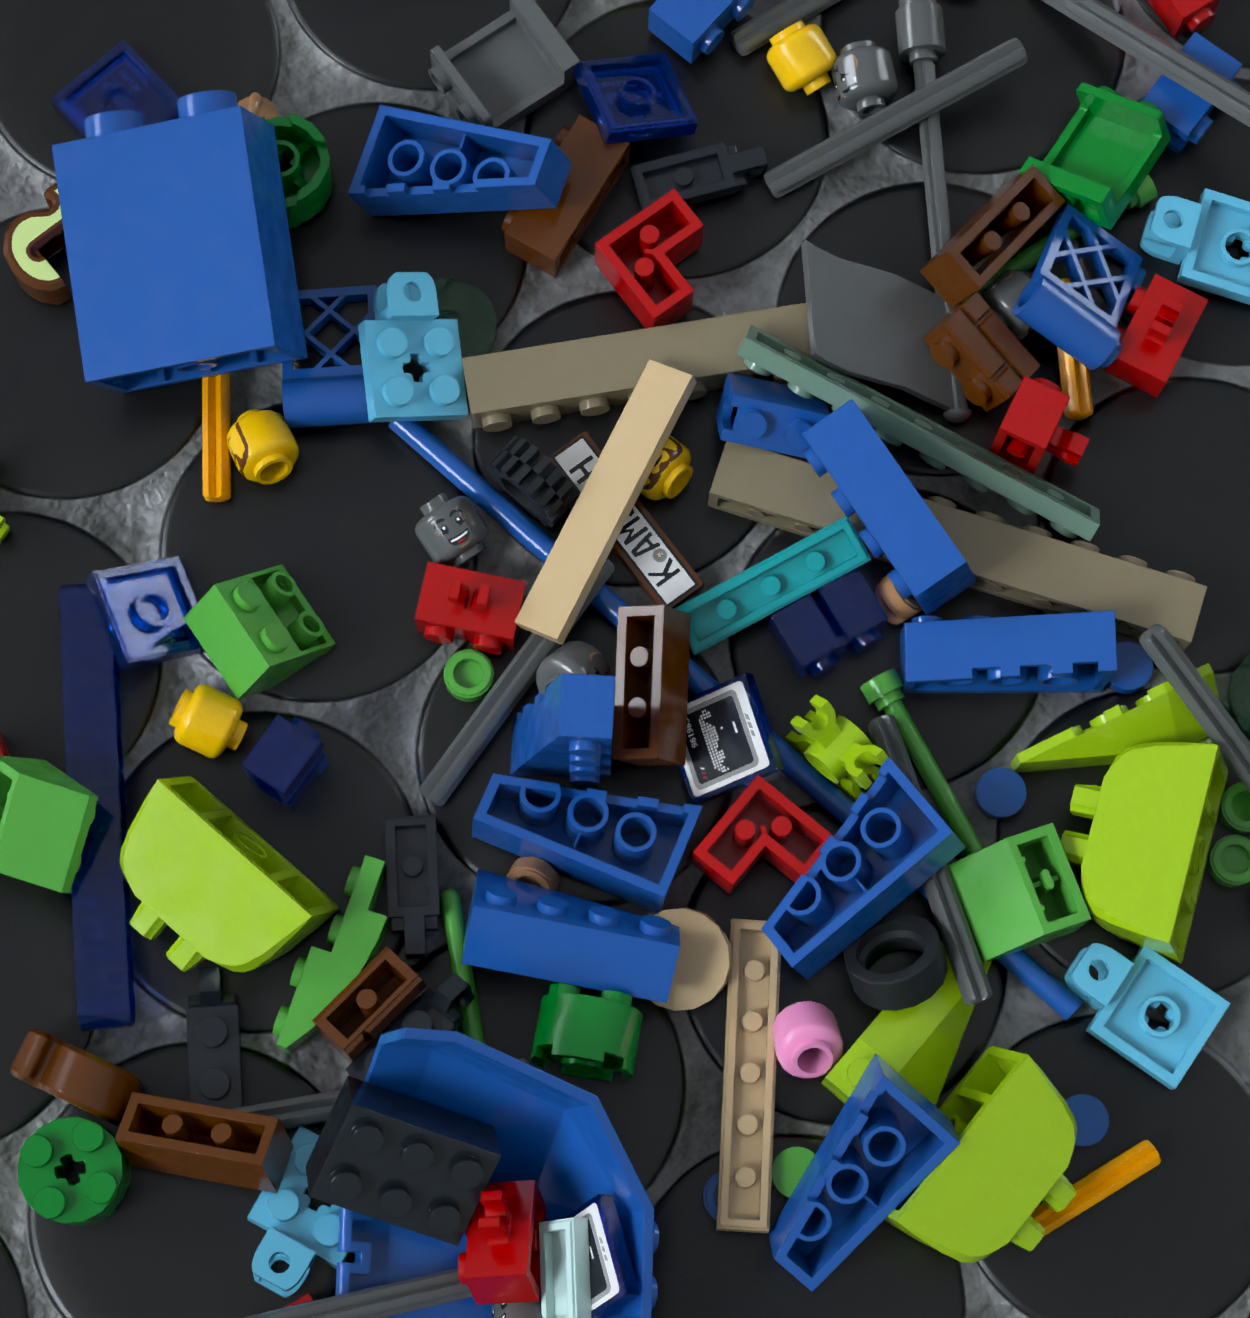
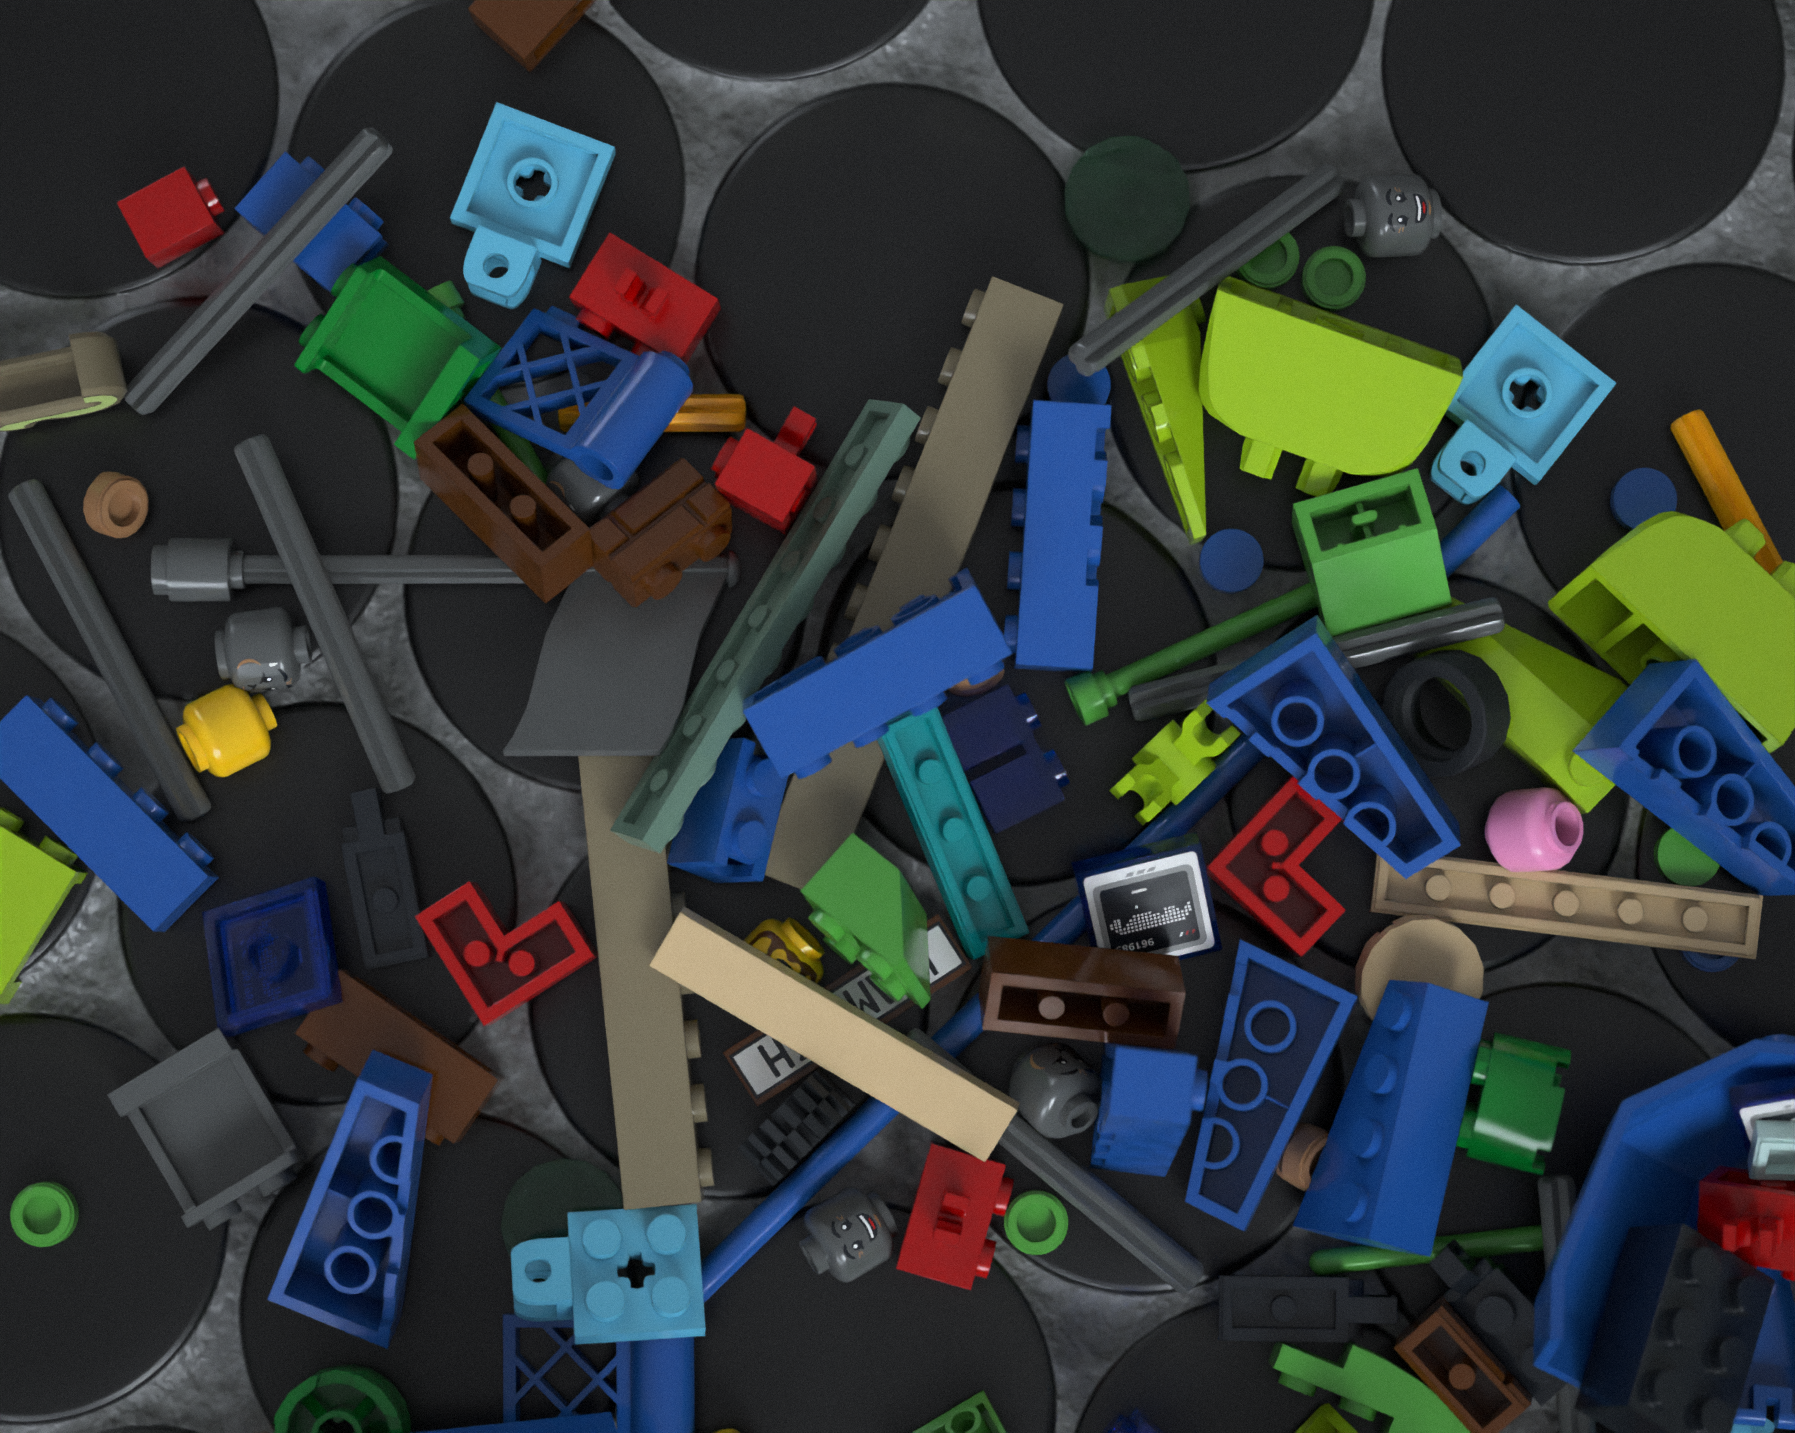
camera: 80 degrees left, 10 degrees up
(696, 524) = (872, 918): none -> bright green slope

